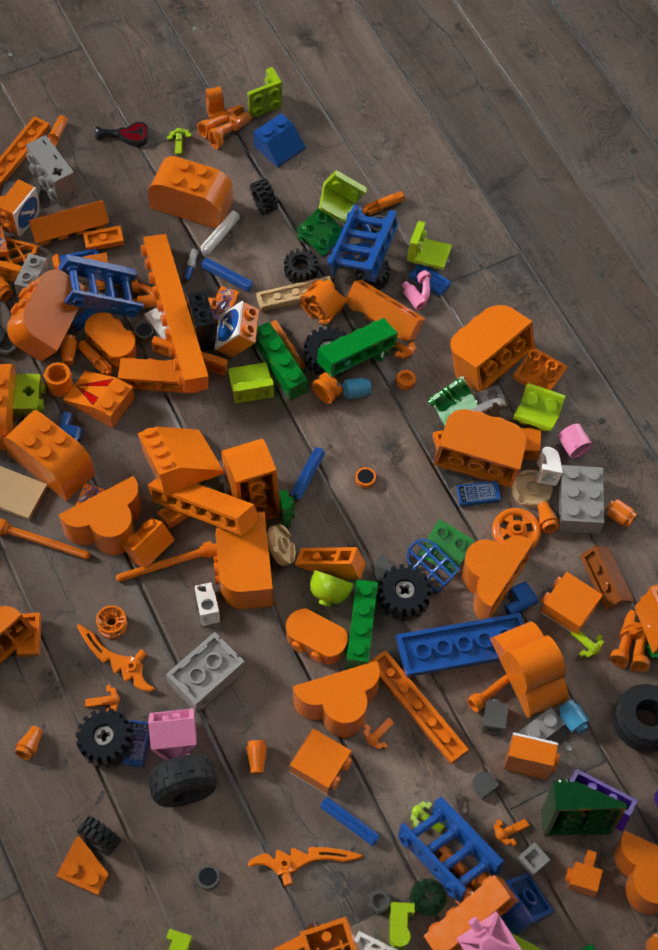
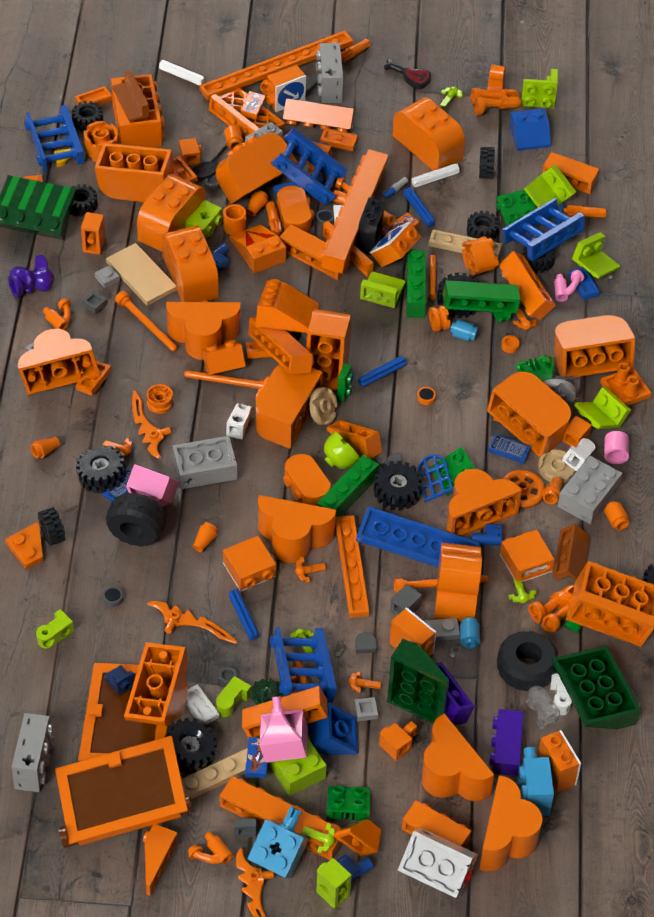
camera: 30 degrees right, 10 degrees down
(355, 166) = (580, 175): none -> orange brick

